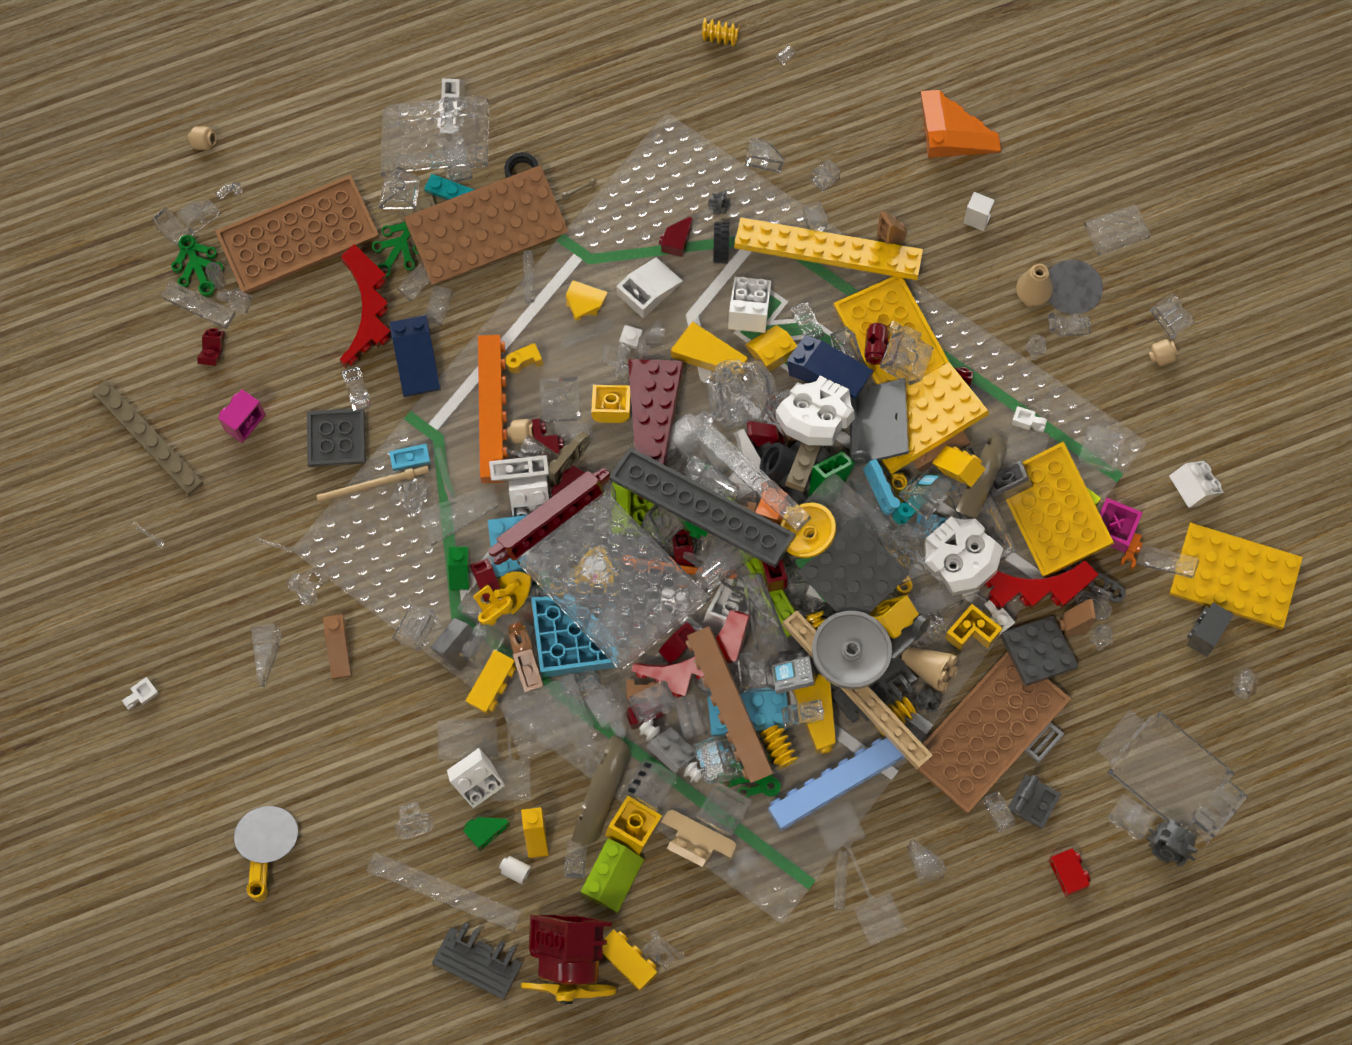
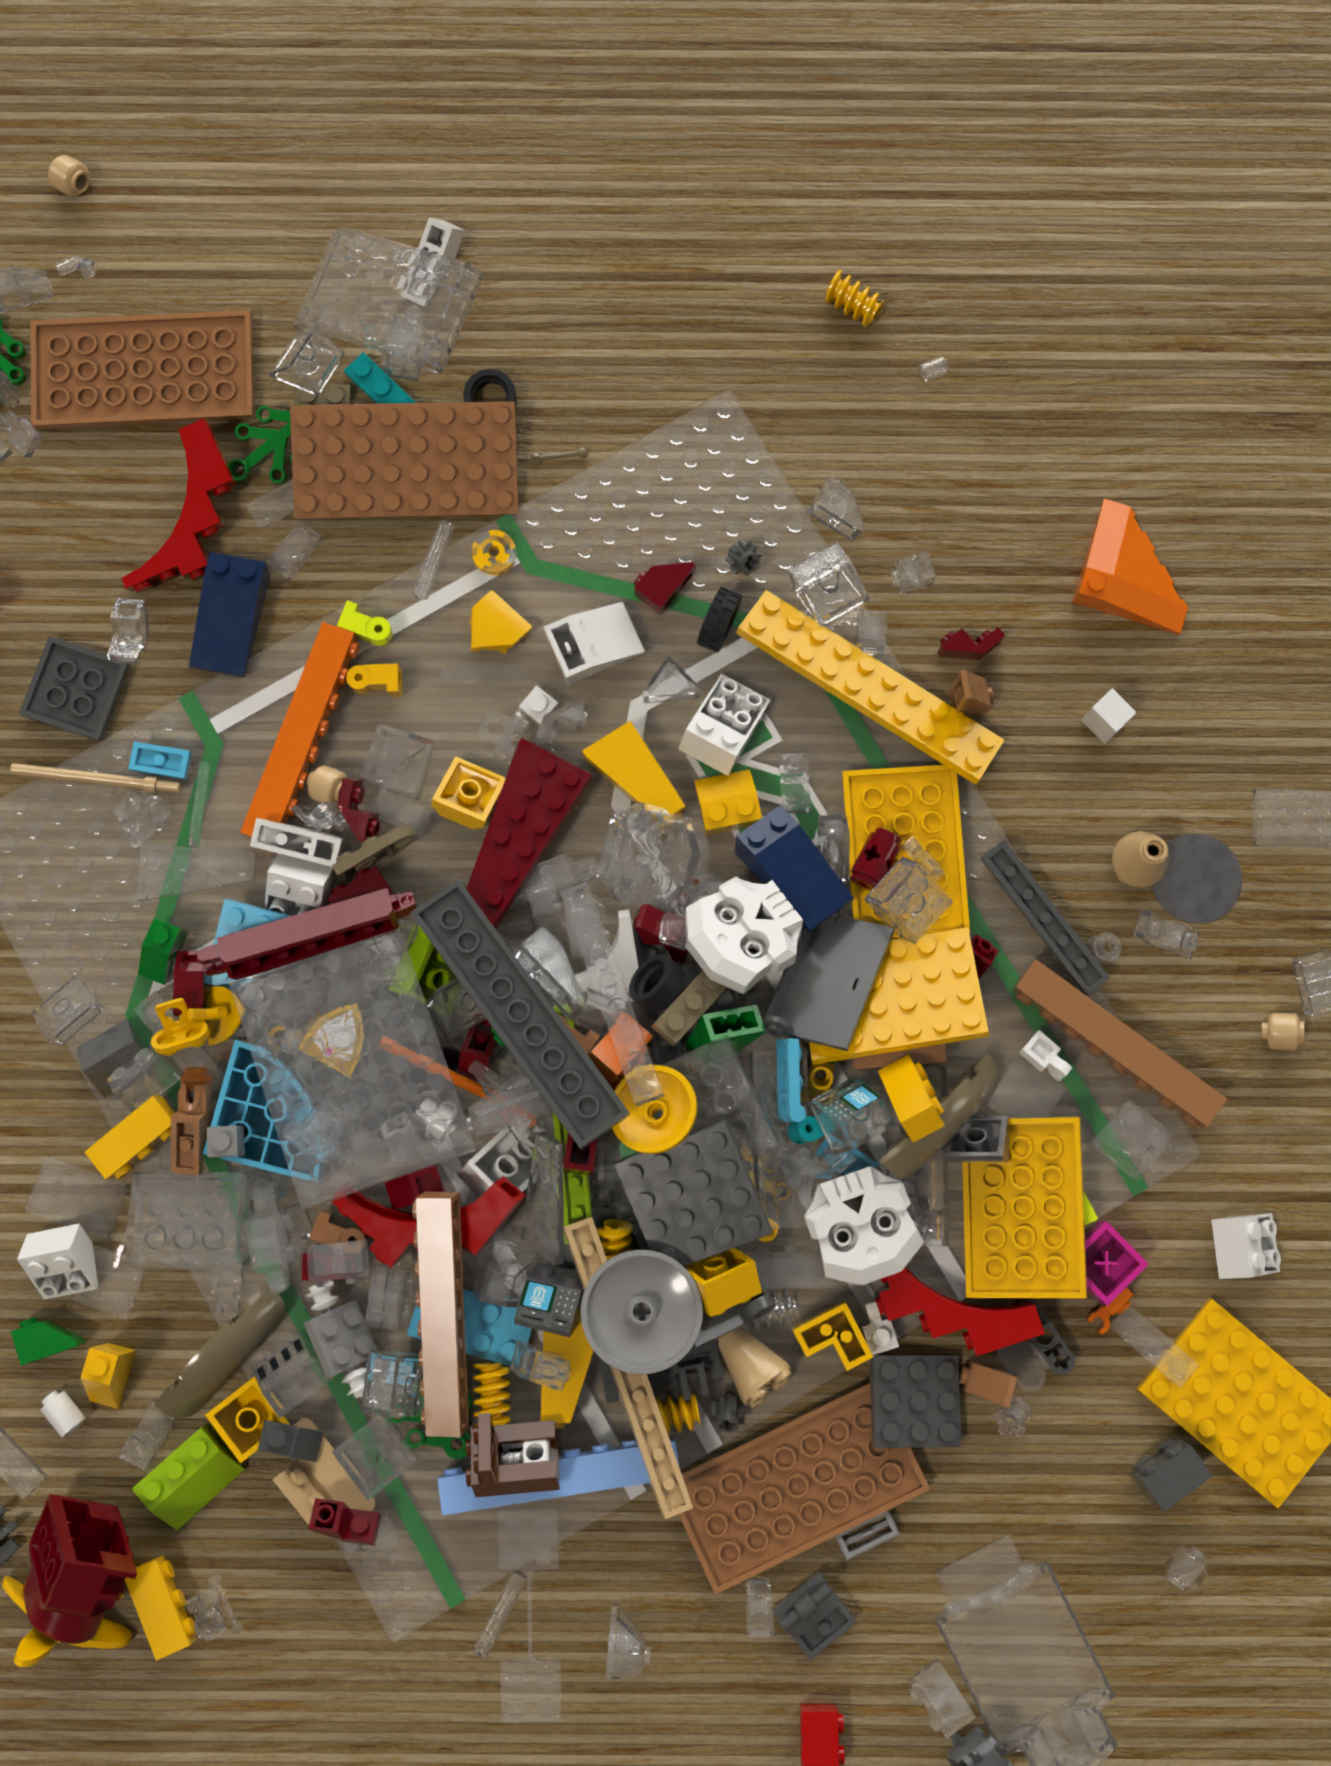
camera: 20 degrees right, 10 degrees up
(507, 330) = (368, 629): none -> neon yellow leg
(553, 655) = (225, 1141): none -> light grey brick
(568, 265) = (497, 564): none -> clear piece
(667, 823) = (290, 1440): none -> dark grey slope
(708, 292) = (670, 684): none -> clear slope
(724, 858) = (345, 1524): none -> dark red slope
(773, 430) = (673, 931): none -> clear plate
(777, 199) = (828, 584): none -> clear slope
(809, 773) = (517, 1445): none -> reddish brown brick
(873, 205) = (963, 647): none -> dark red slope
(992, 341) = (1044, 918): none -> dark grey plate
(1068, 396) = (1118, 1044): none -> medium nougat brick

